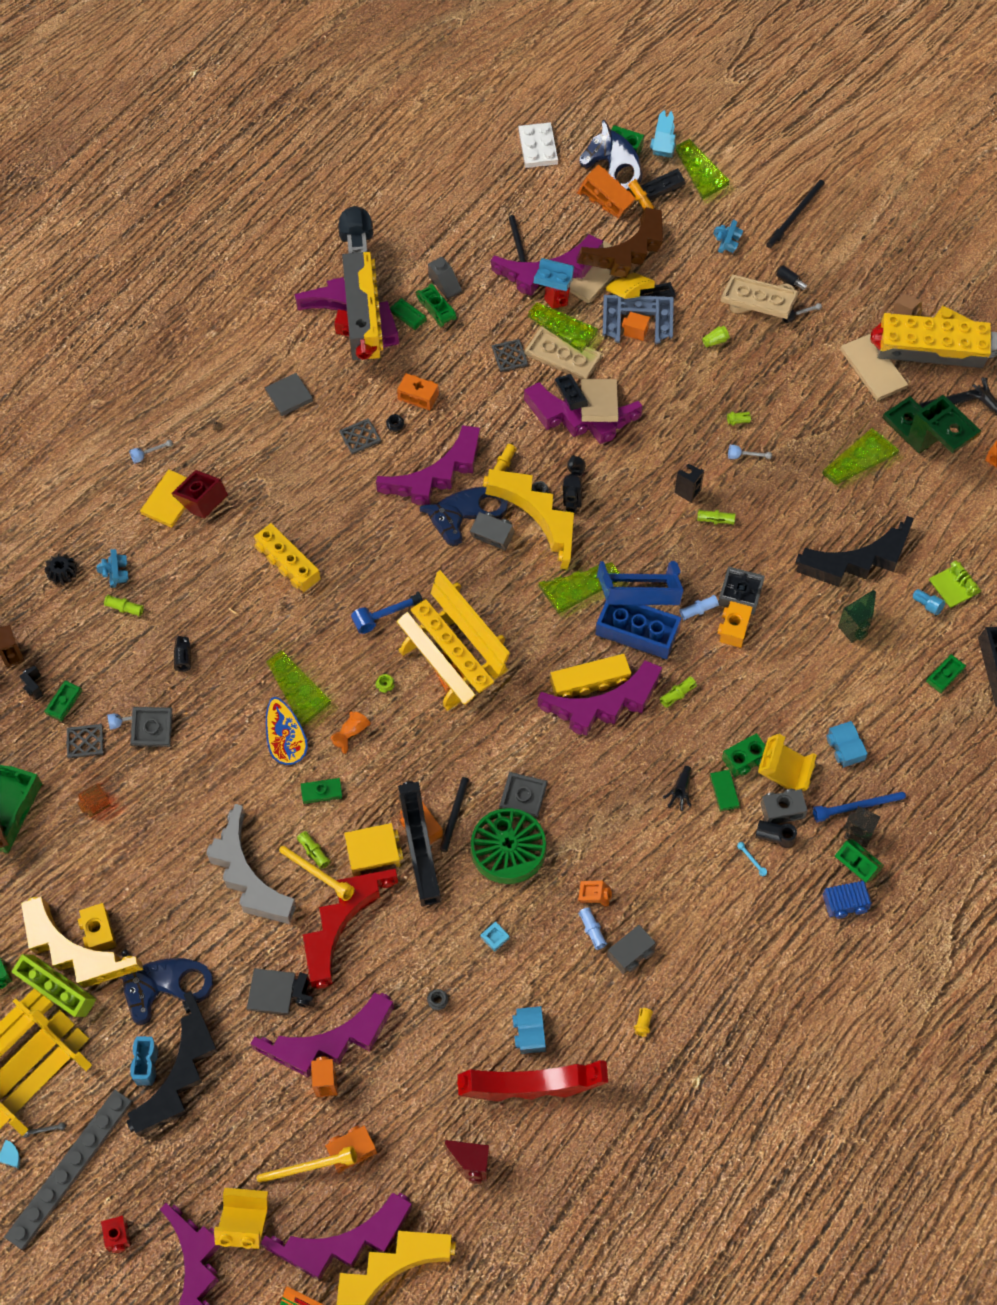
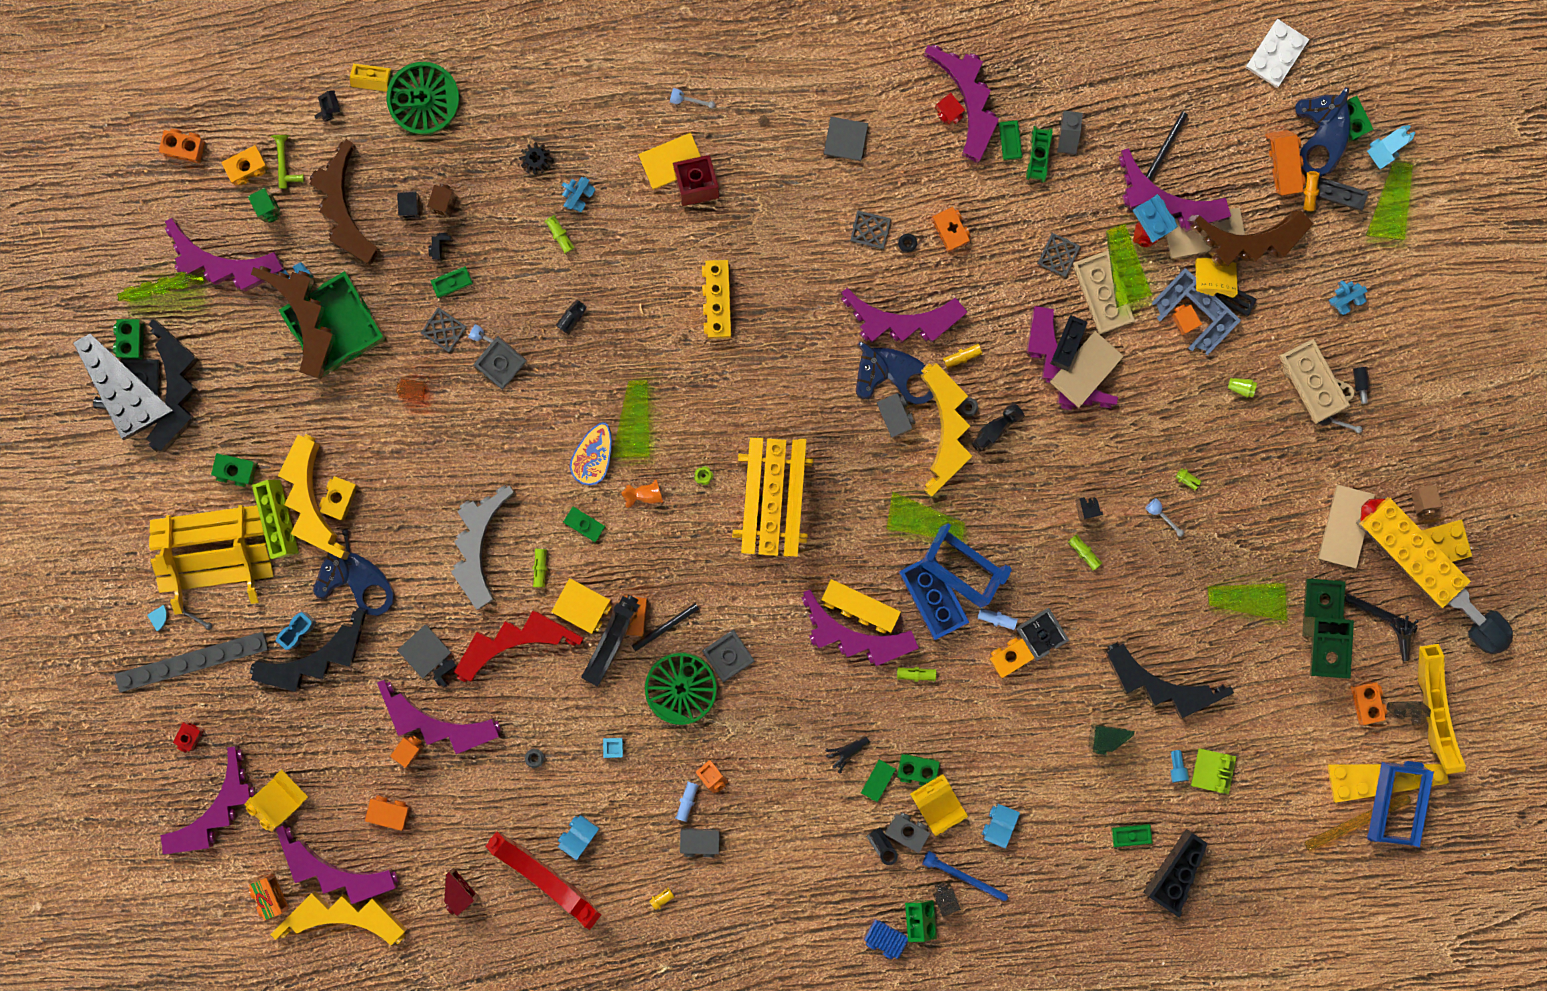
camera: 40 degrees right, 25 degrees up
(342, 889) = (530, 625): yellow piece -> none
(346, 1156) = (376, 821): yellow piece -> none
(363, 320) = (1029, 25): piece -> none
(365, 620) = (732, 409): blue piece -> none
(762, 871) = (848, 864): medium azure hinge -> none
(779, 233) = (1395, 329): black bar -> none

